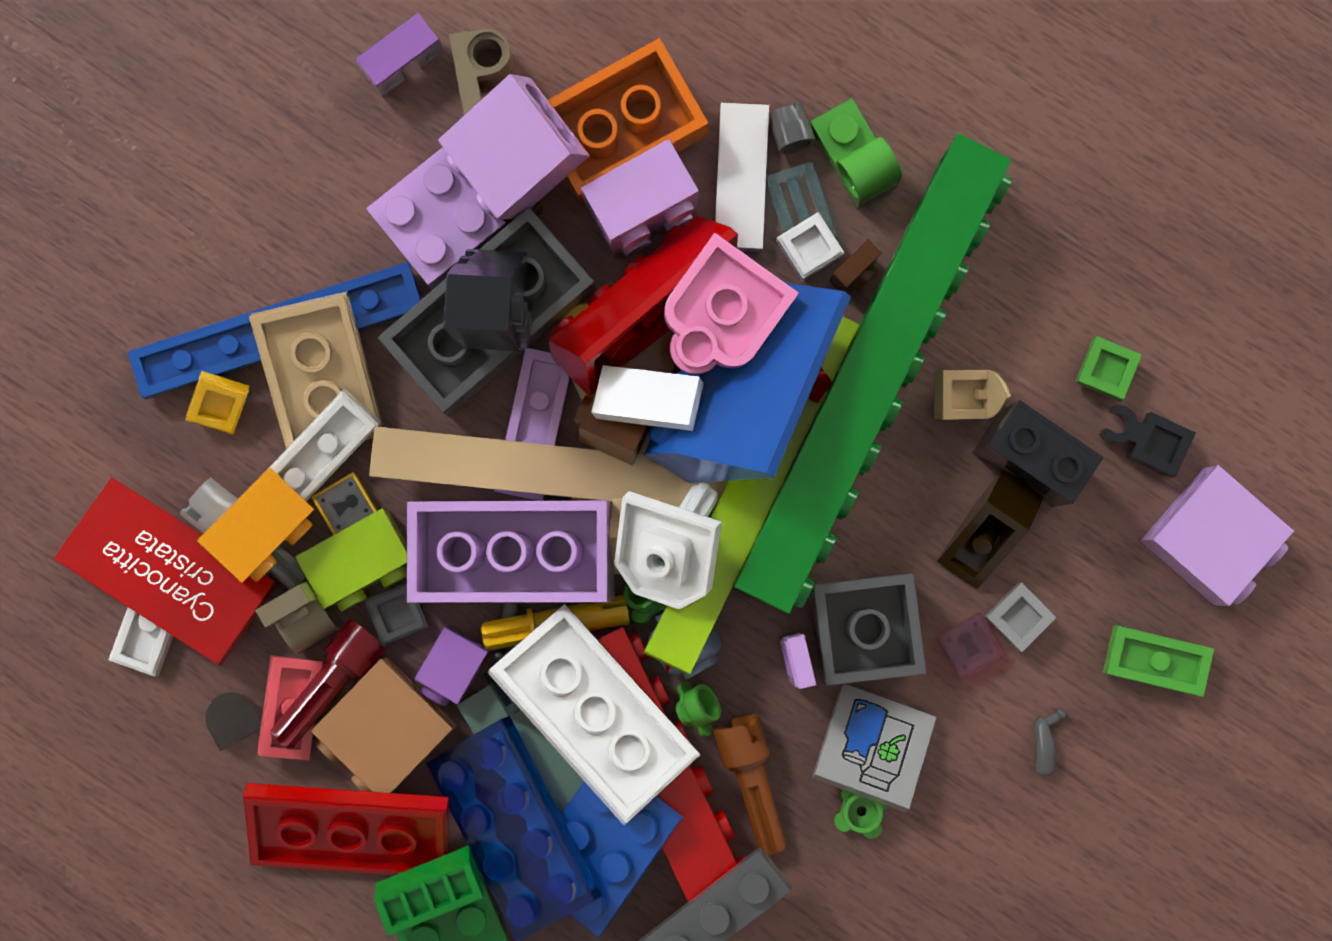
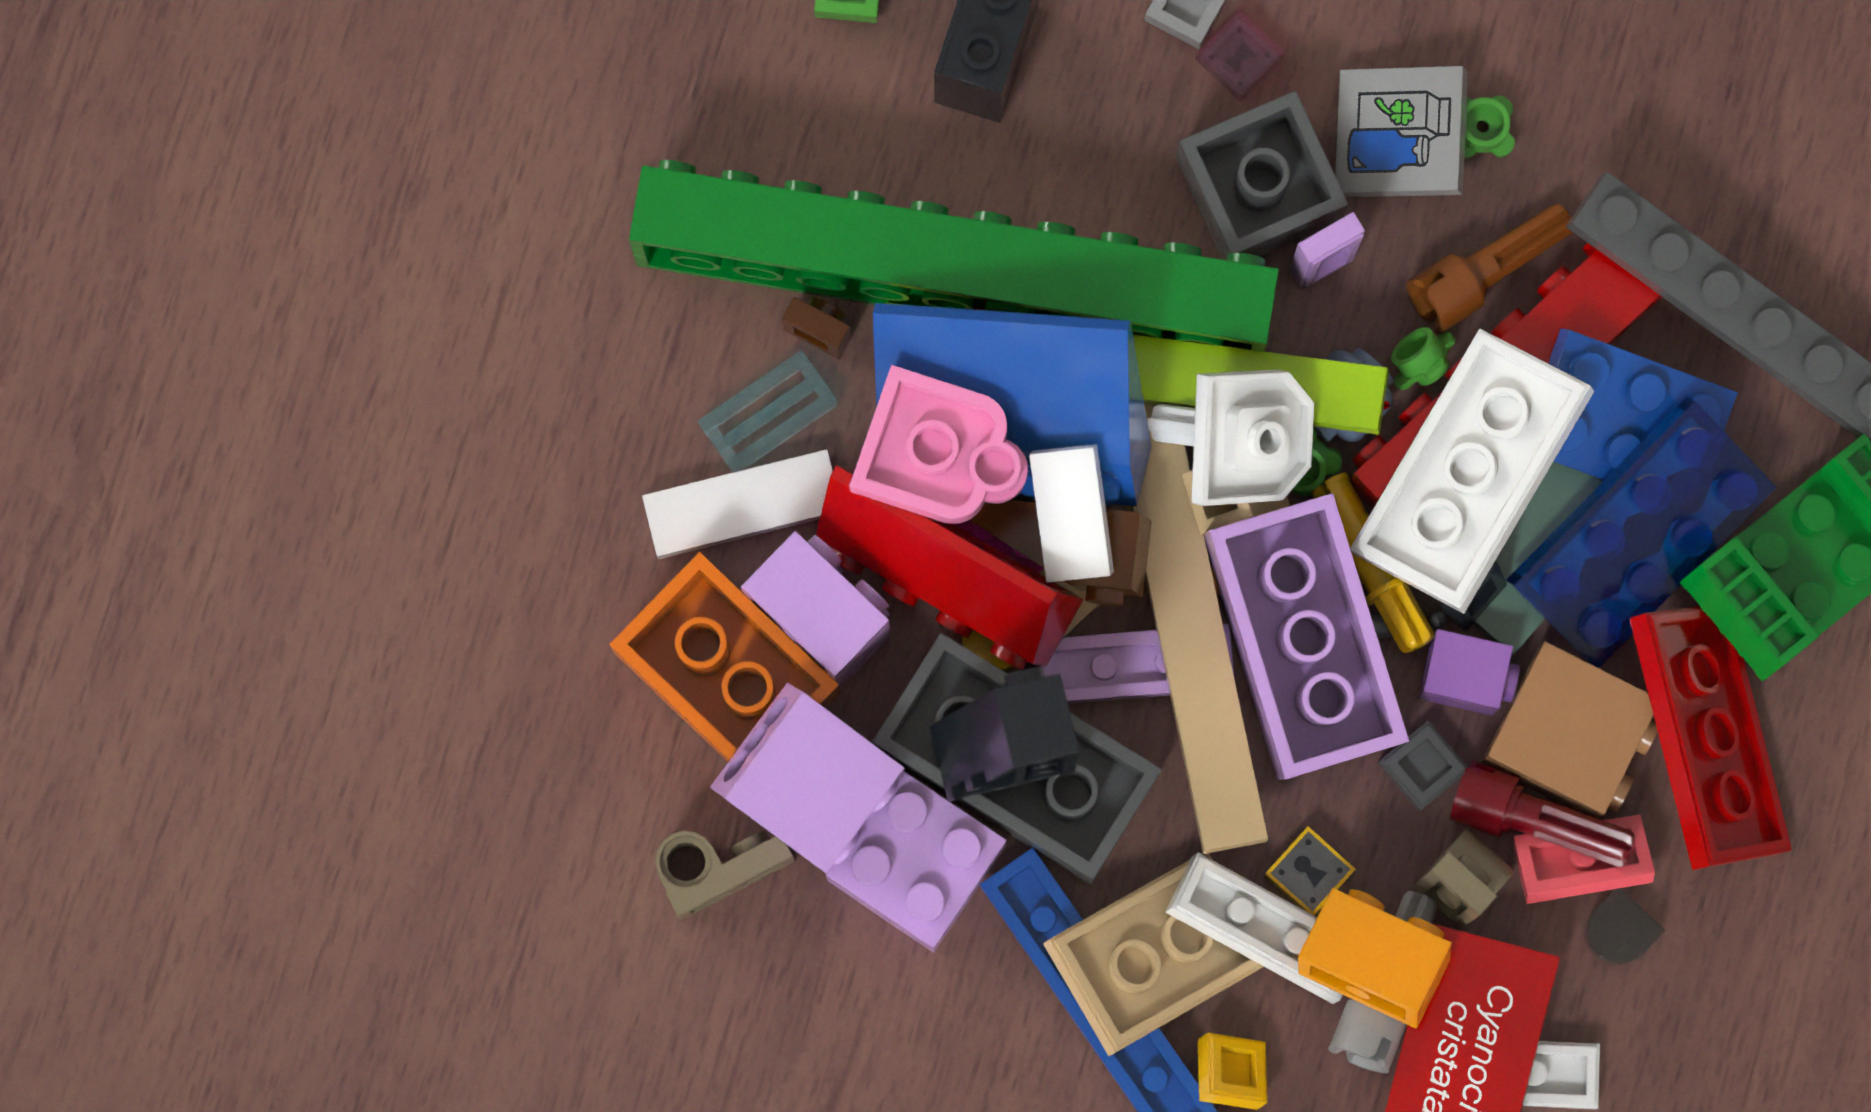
camera: 105 degrees left, 5 degrees down
(356, 560) = (1375, 830): lime brick -> none
(407, 43) = (716, 979): medium lavender piece -> none
(791, 129) = (663, 458): dark grey hose -> none
(810, 246) = (808, 389): white tile -> none
(858, 158) = (673, 369): bright green plate -> none
(969, 394) = (933, 143): tan plate -> none
(991, 529) = (1090, 68): dark brown slope -> none

